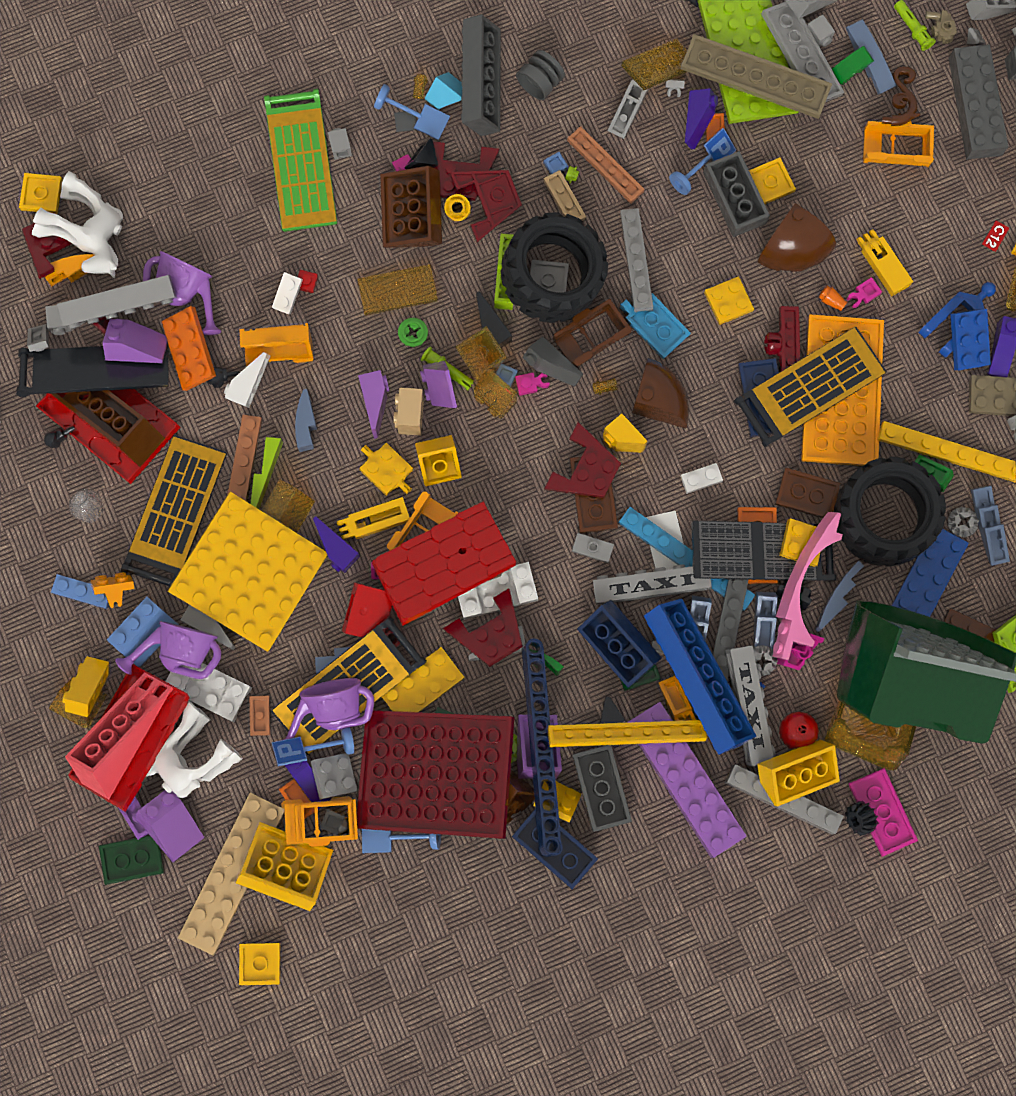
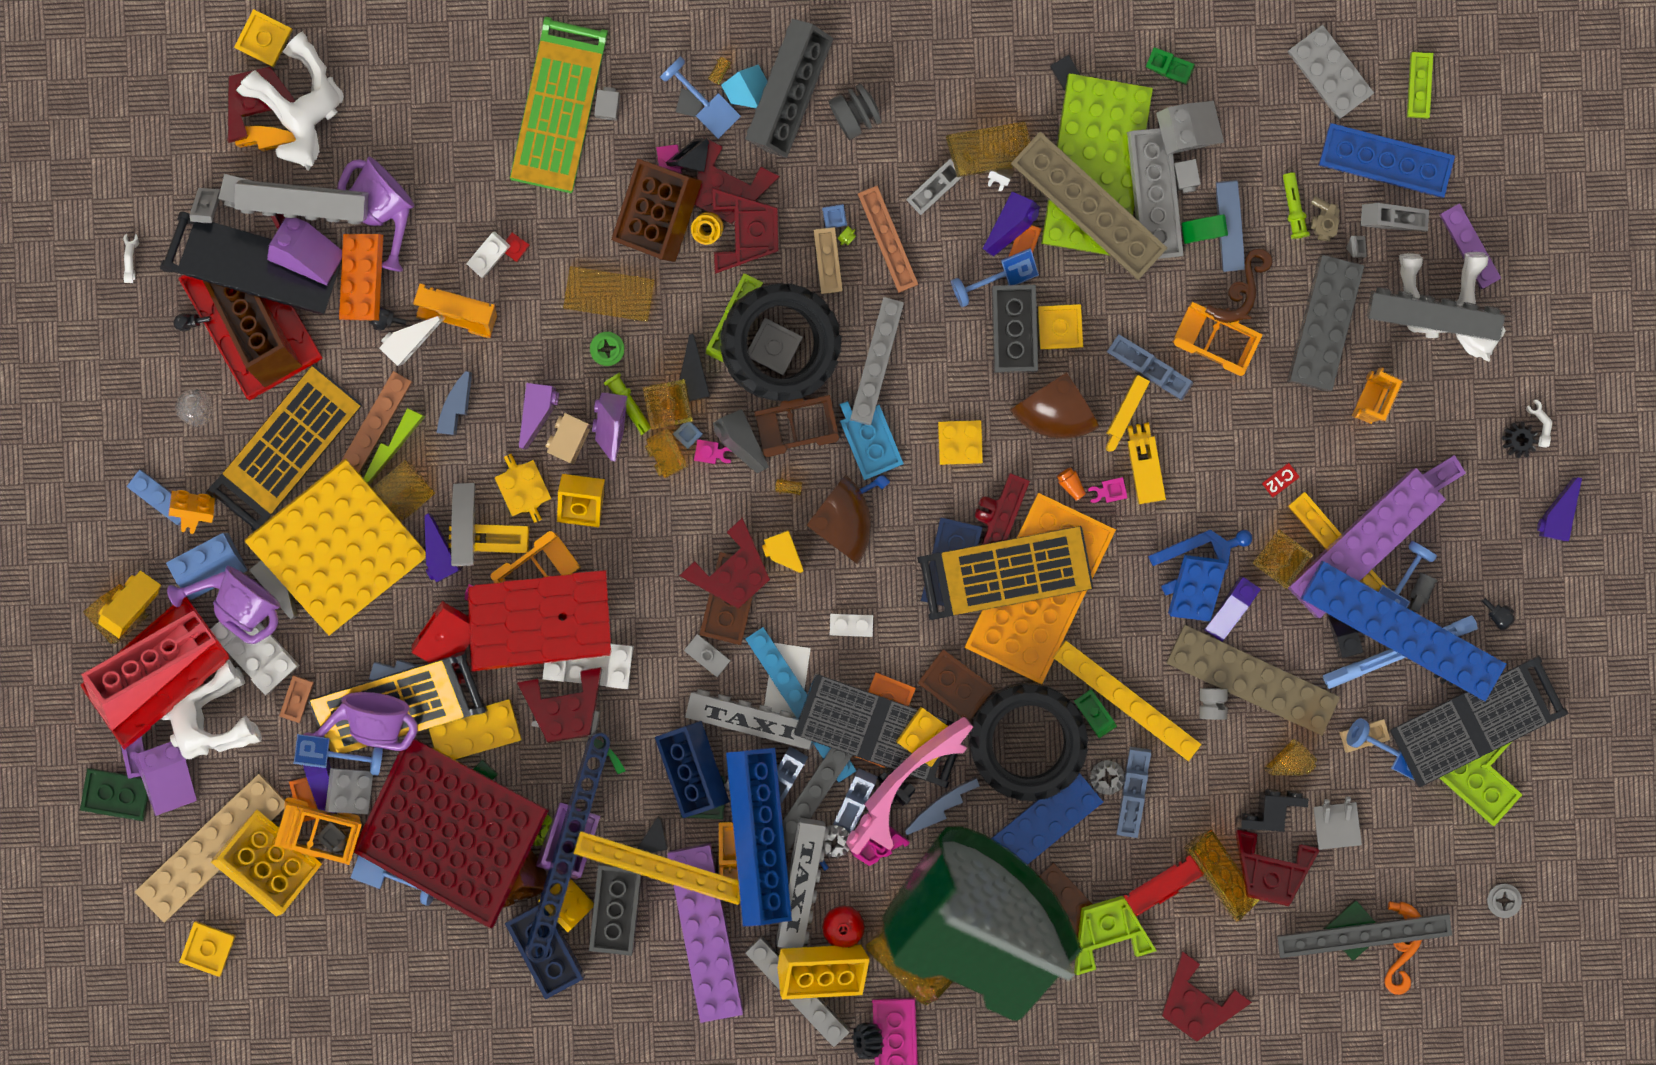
camera: 25 degrees right, 10 degrees up
(348, 513) = (463, 524): none -> light grey slope
(678, 354) = (881, 481): none -> blue hand
(851, 225) = (1126, 411): none -> yellow hinge
(853, 186) = (1150, 367): none -> sand blue slope

